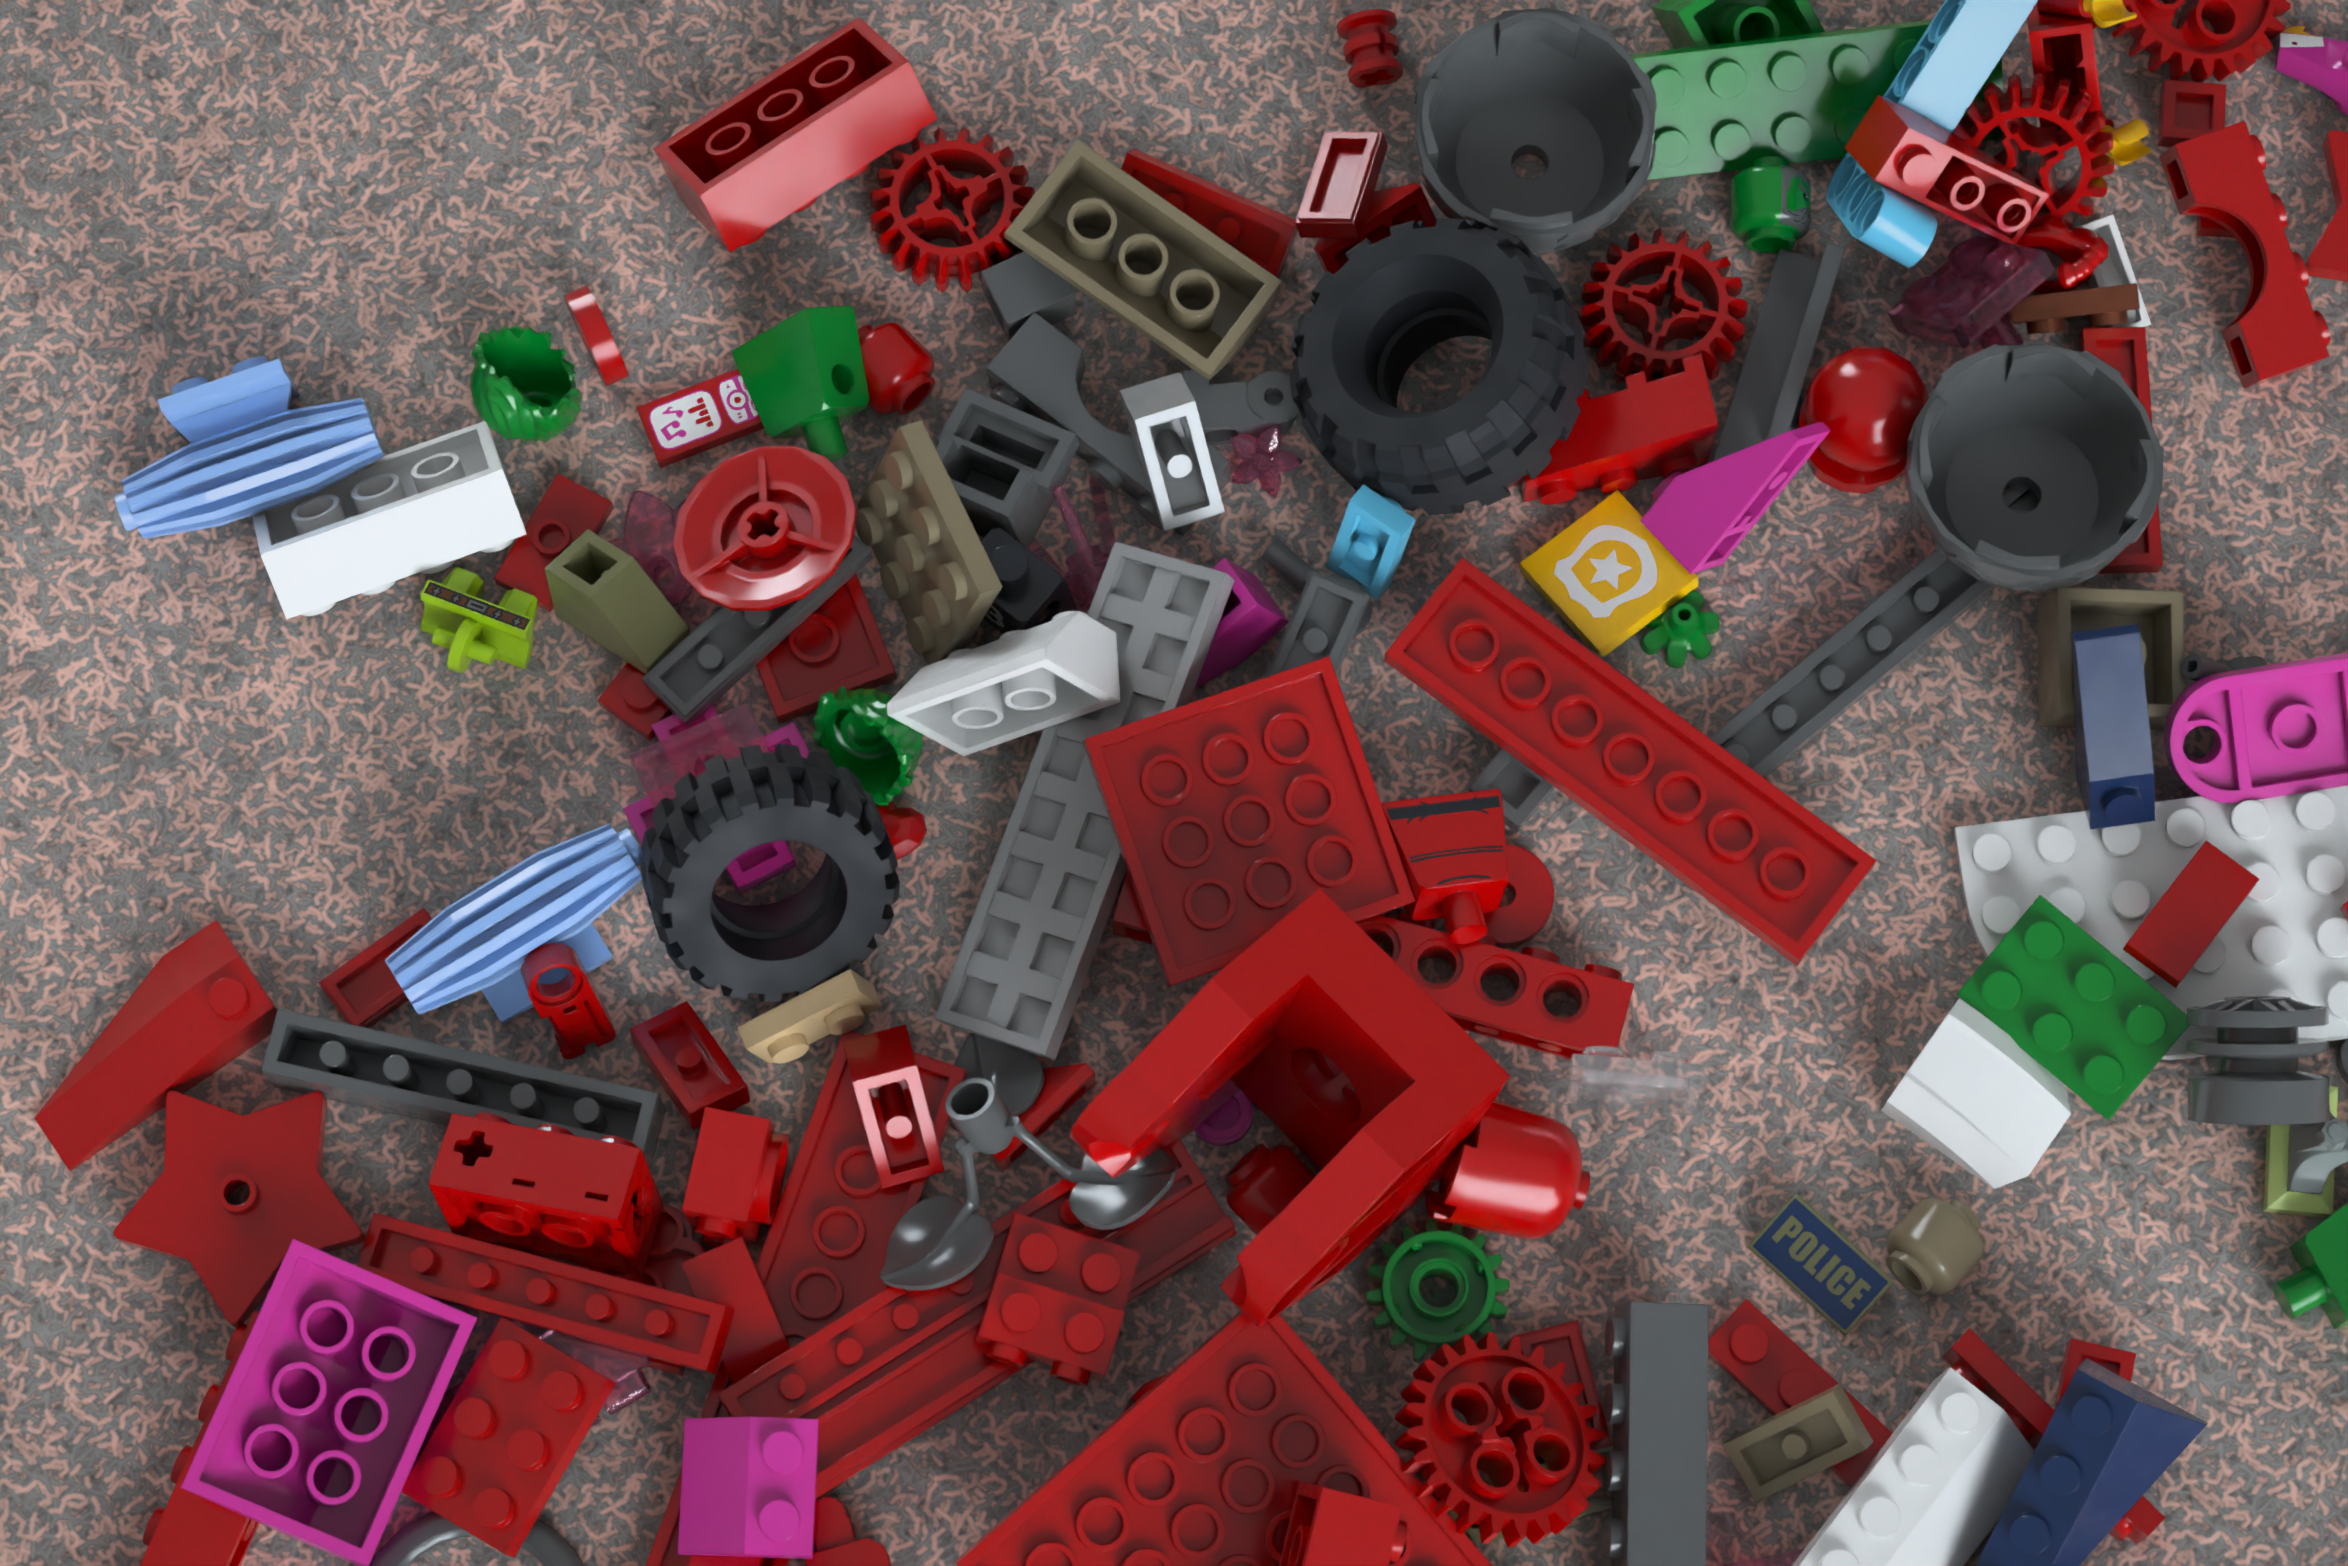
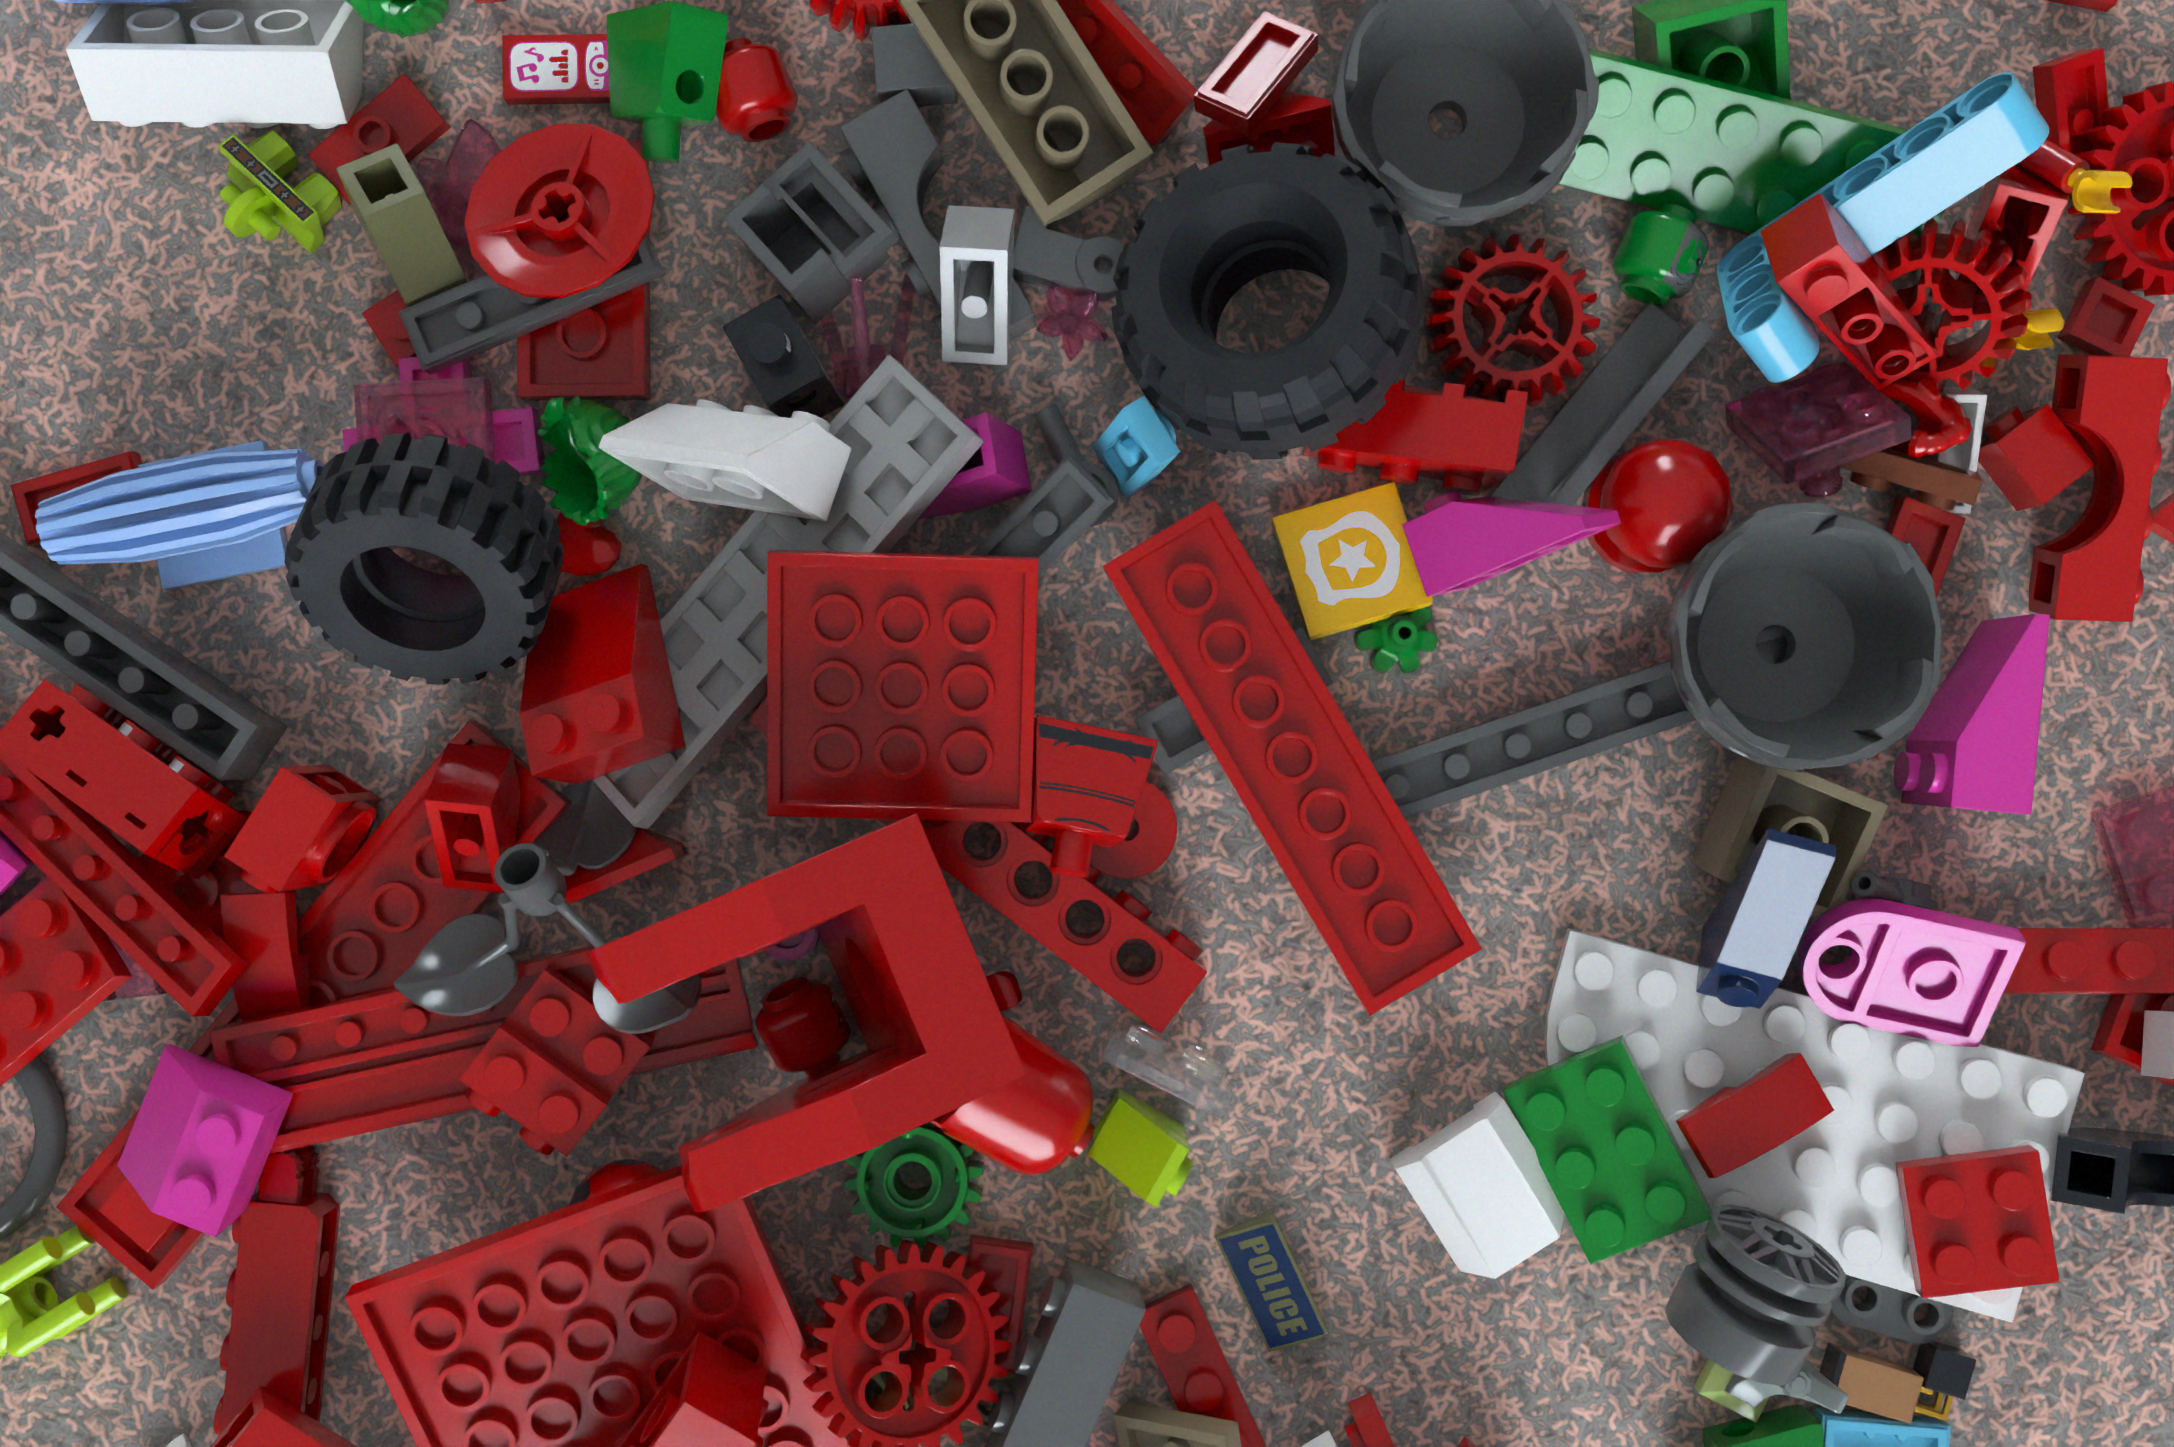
camera: 20 degrees right, 15 degrees up
(569, 1004) = (218, 597): red piece -> none
(689, 1063) = (312, 702): red plate -> none
(826, 1009) = (459, 701): tan plate -> none
(926, 546) = (705, 287): dark tan plate -> none
(963, 939) = (599, 682): none -> red slope
(1641, 1170) = (1141, 1148): none -> lime slope
(1934, 1246) = (1382, 1313): dark tan head -> none
(2177, 252) = (2031, 456): none -> red brick
(2241, 514) = (1983, 724): none -> dark pink slope

